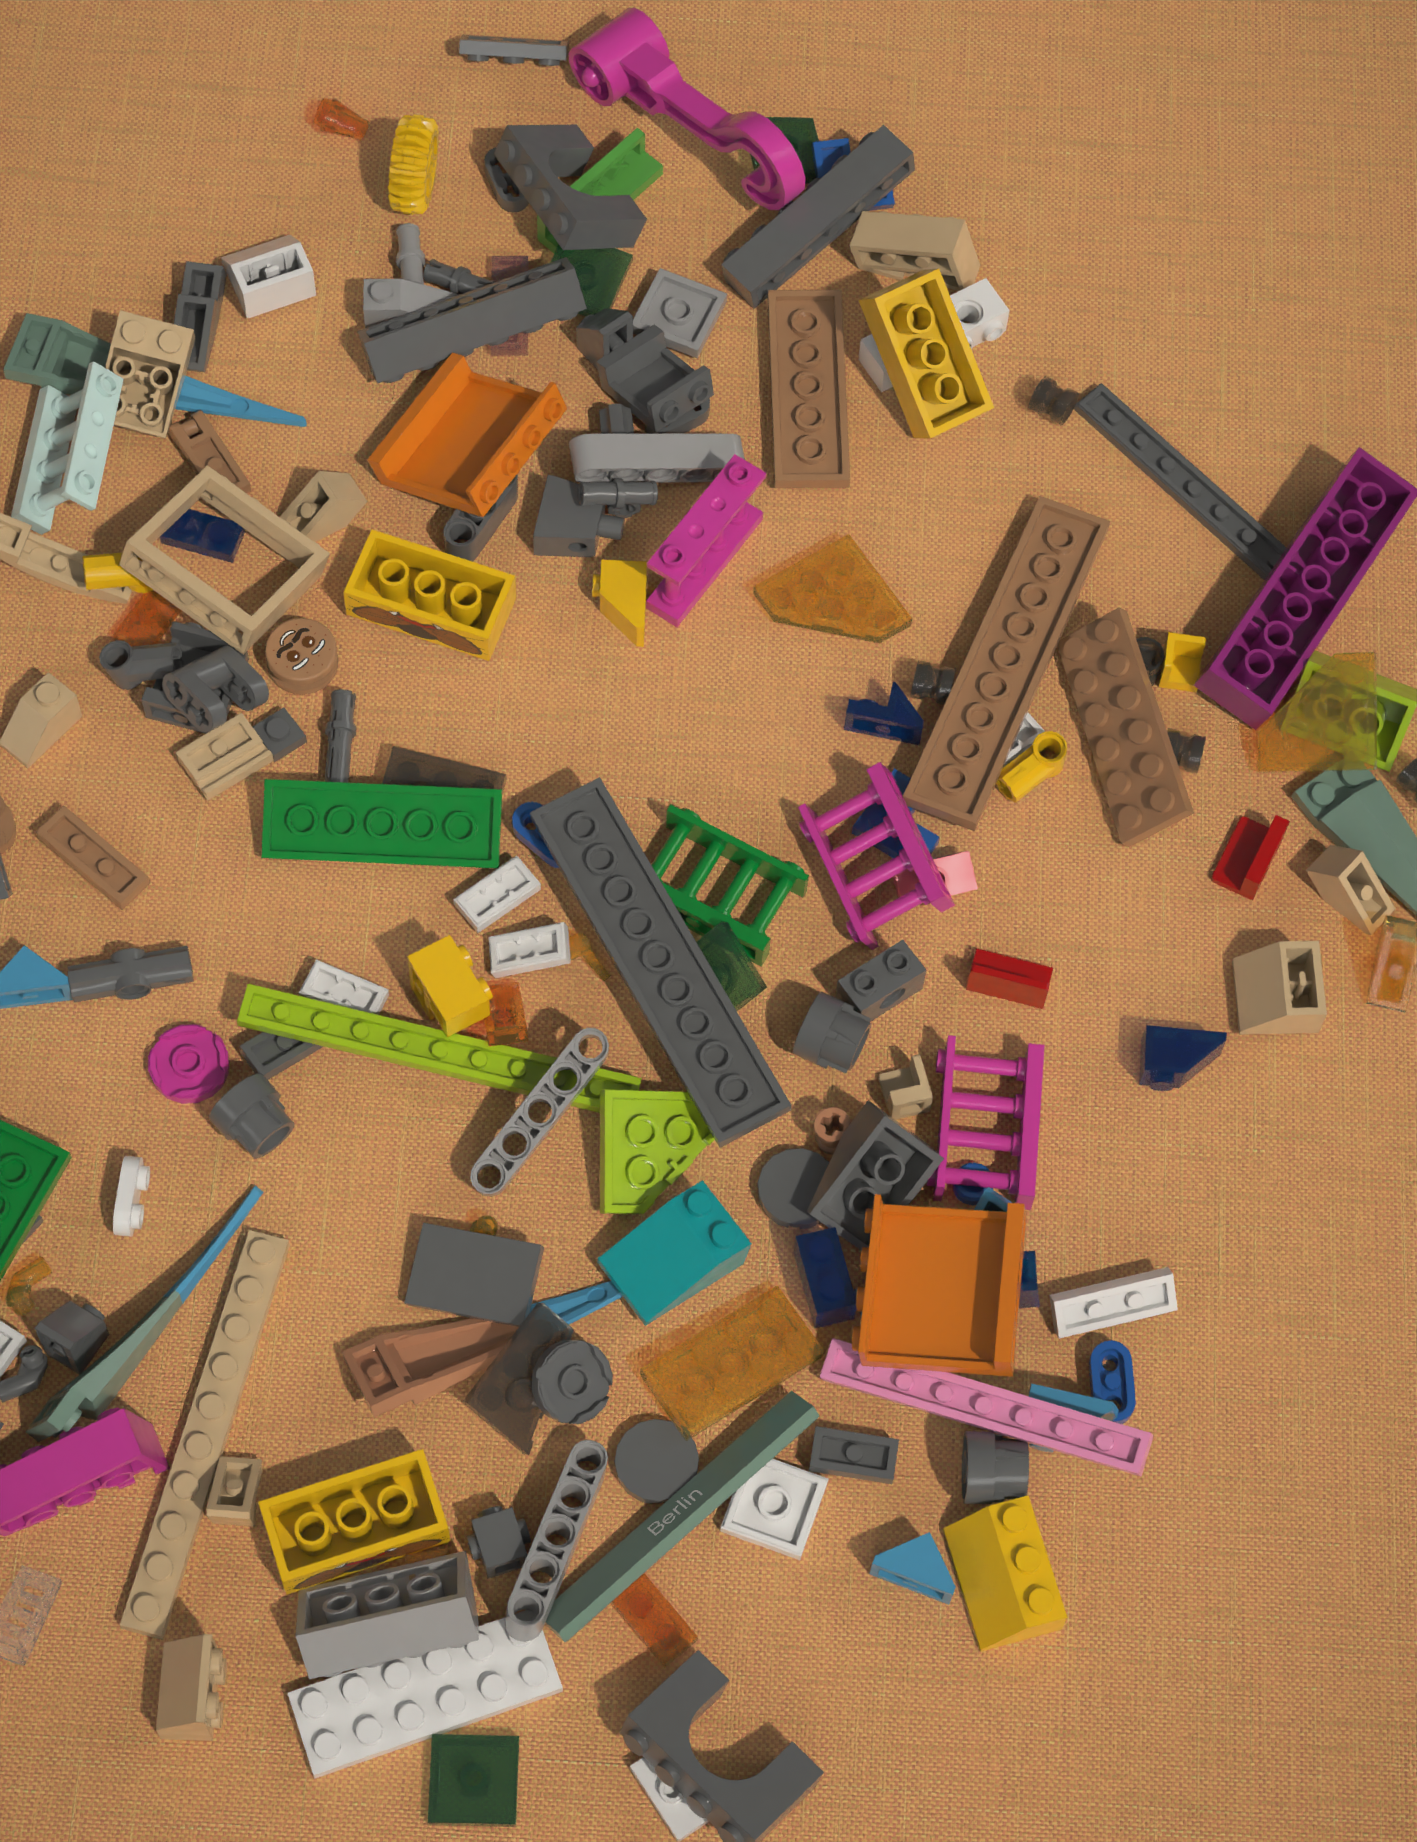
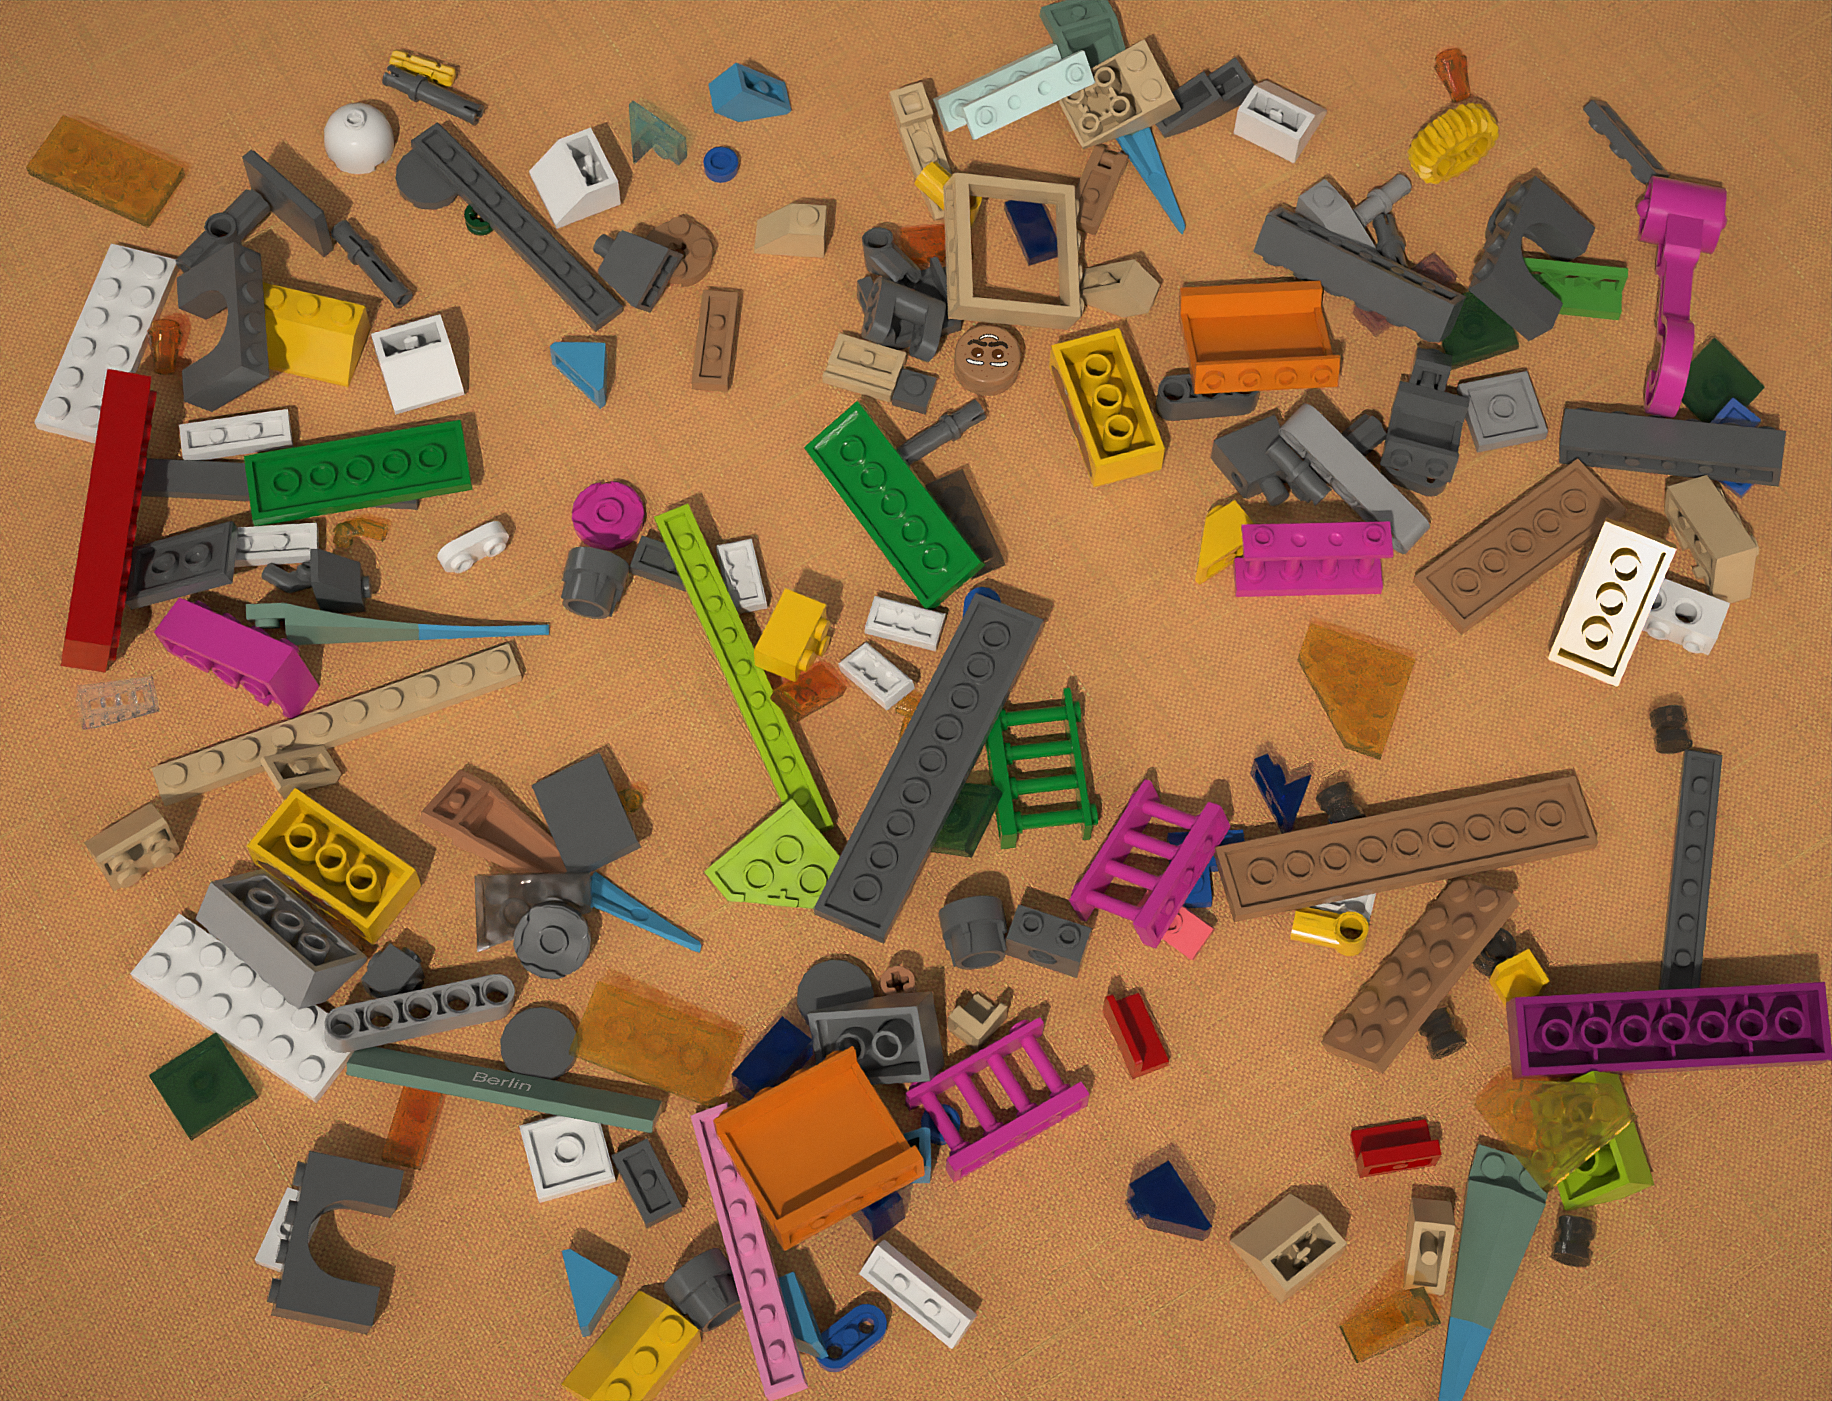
camera: 55 degrees right, 0 degrees up
(130, 974) = (644, 428): dark grey piece -> none
(545, 1092) = (728, 762): light grey beam -> none
(675, 1253) = (708, 943): teal slope -> none

